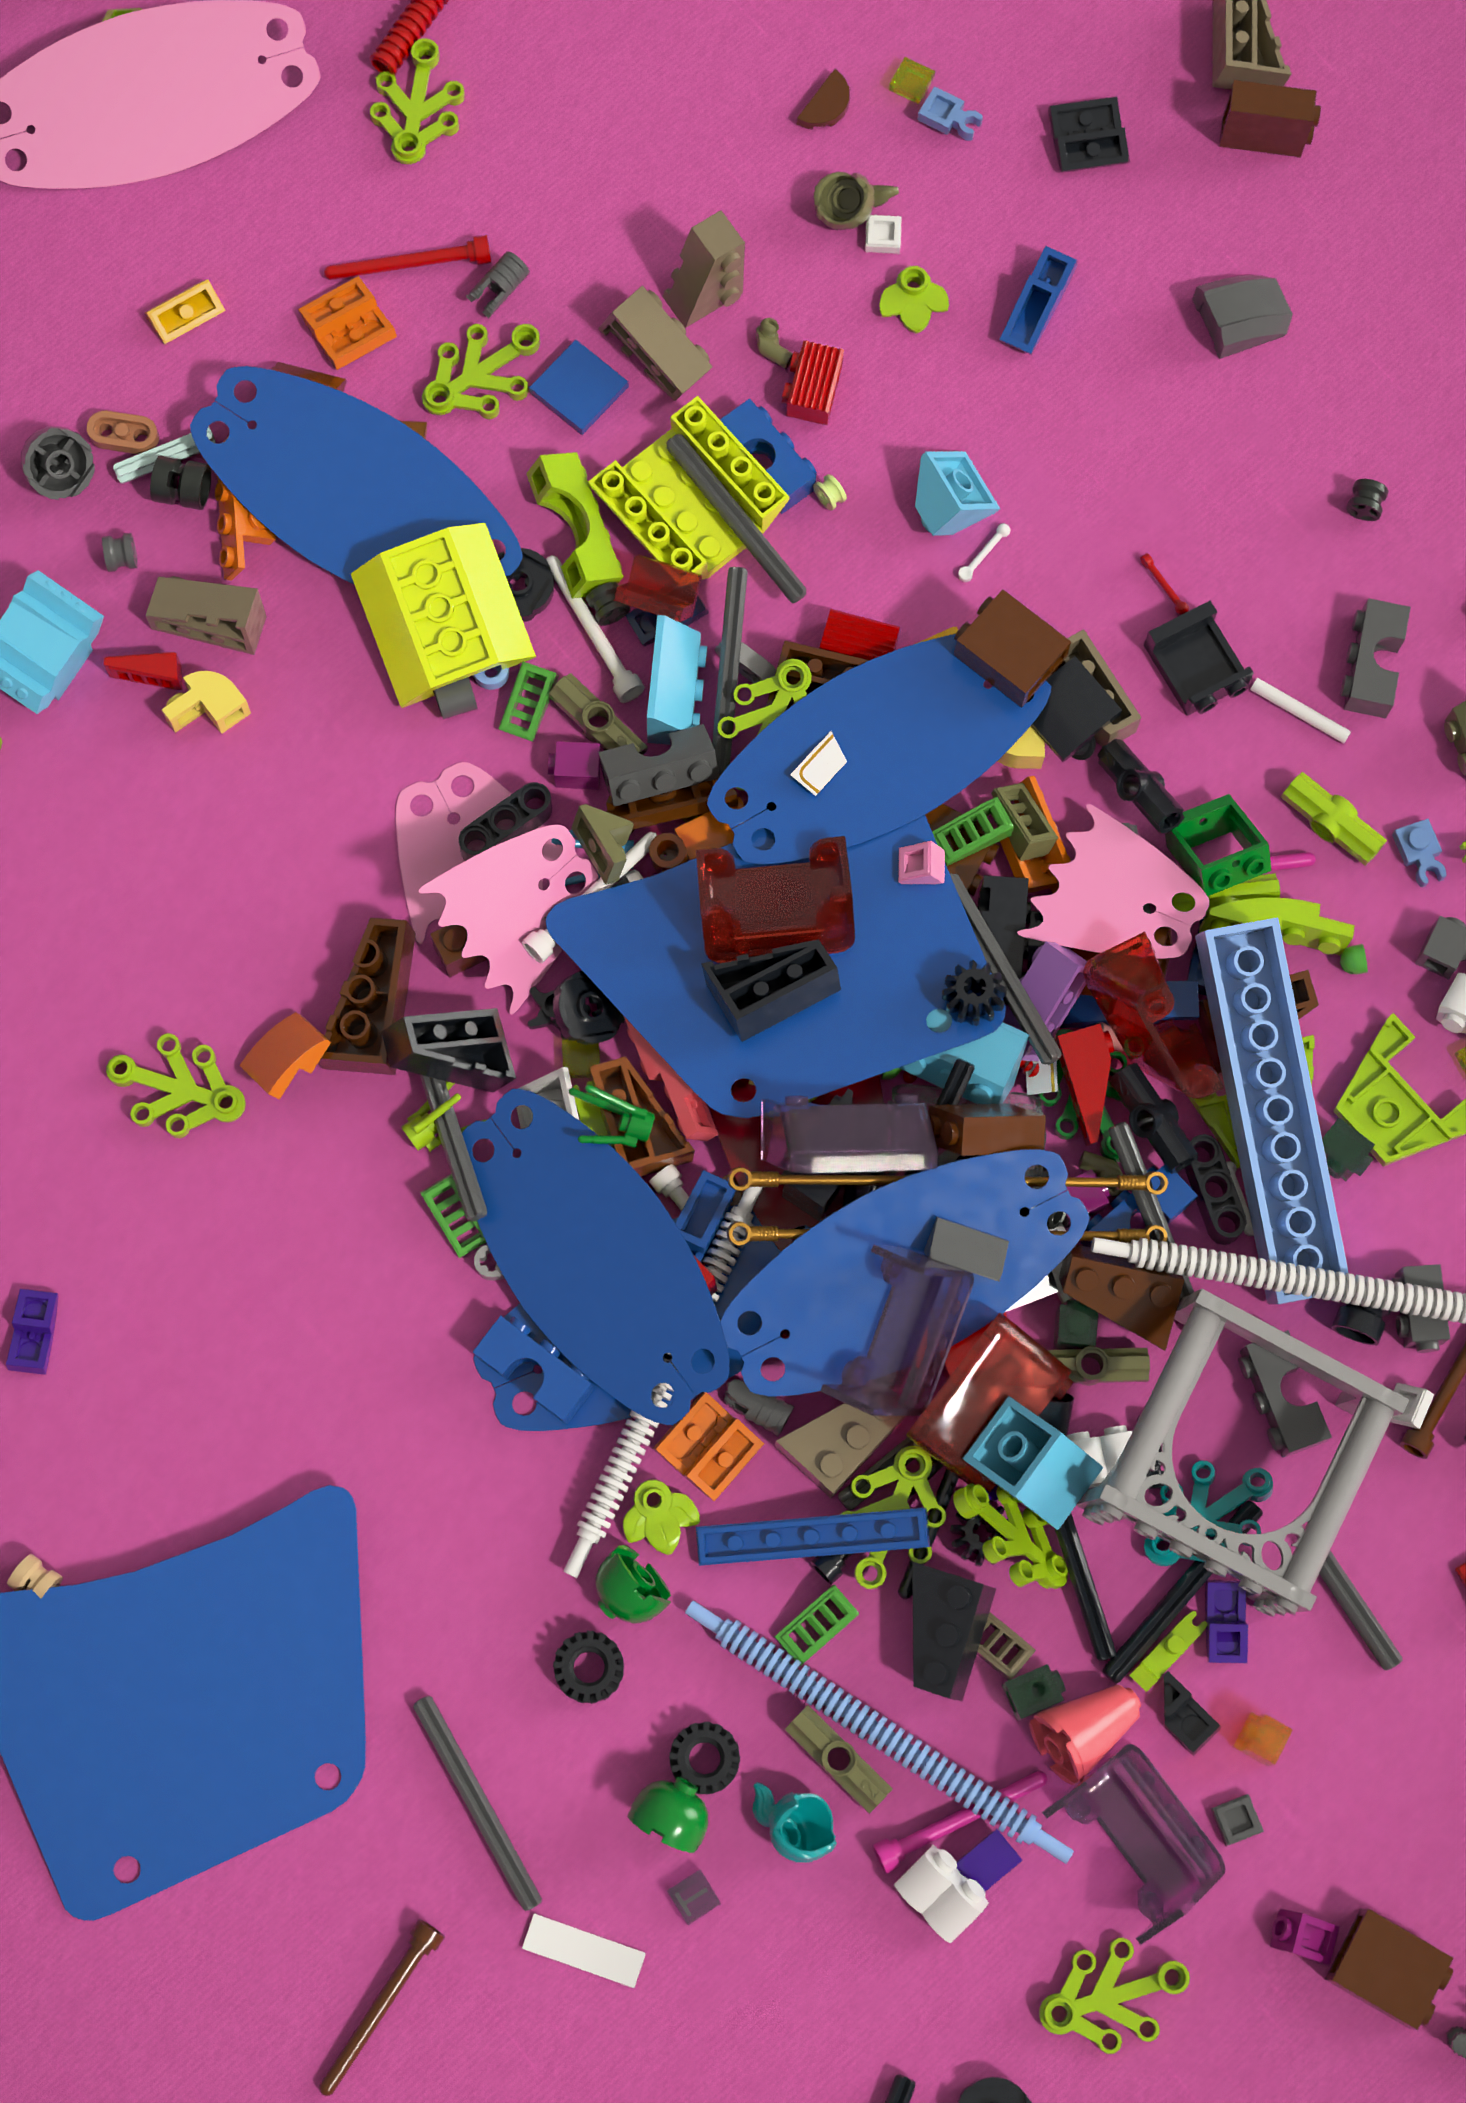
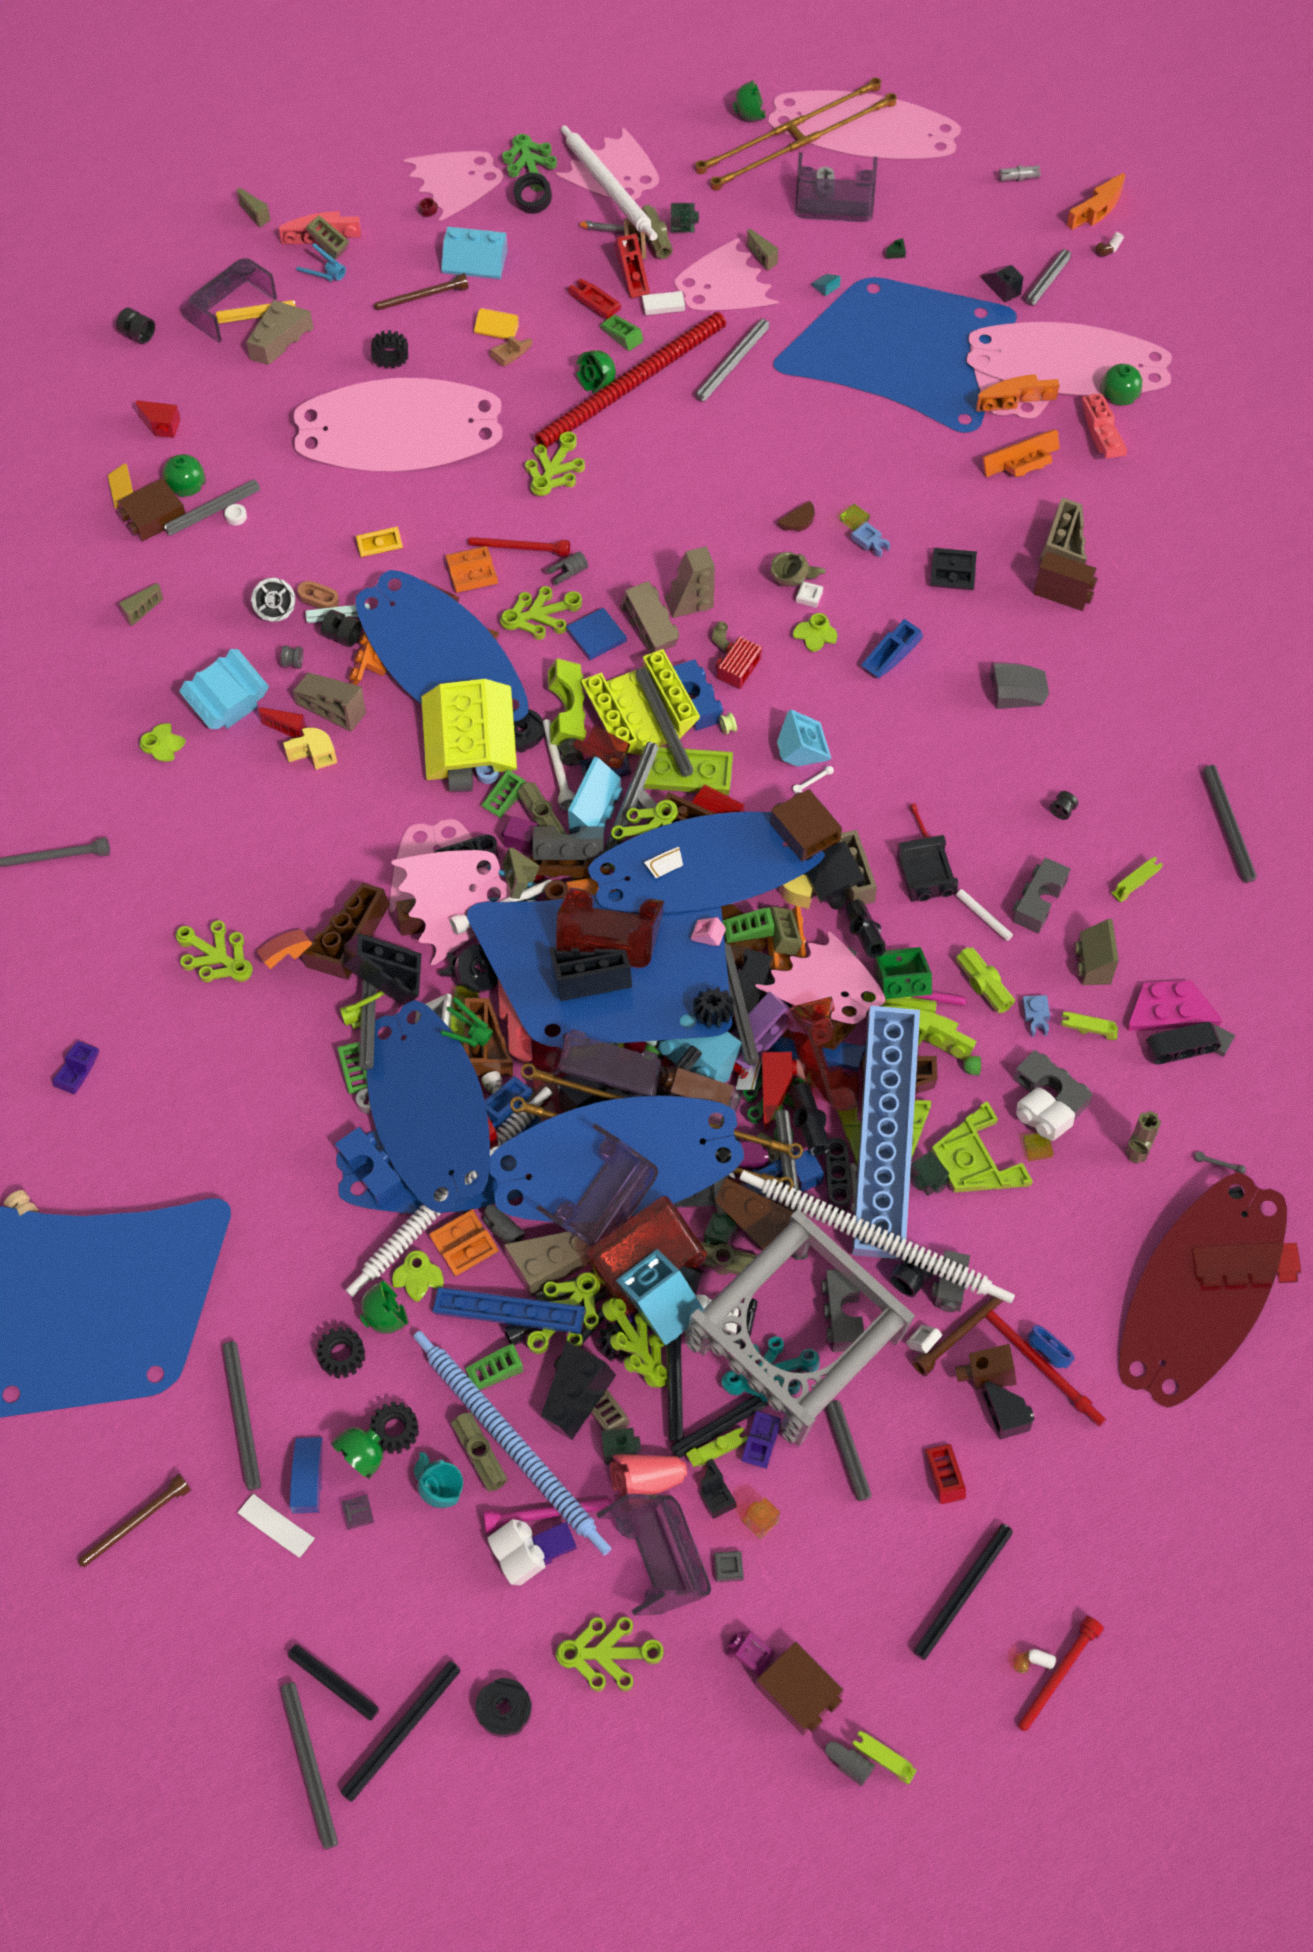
camera: 20 degrees right, 15 degrees down
(603, 1865) = (306, 1475): none -> blue slope
(827, 572) = (708, 766): none -> lime plate
(967, 1249) = (659, 1152): dark grey slope -> none

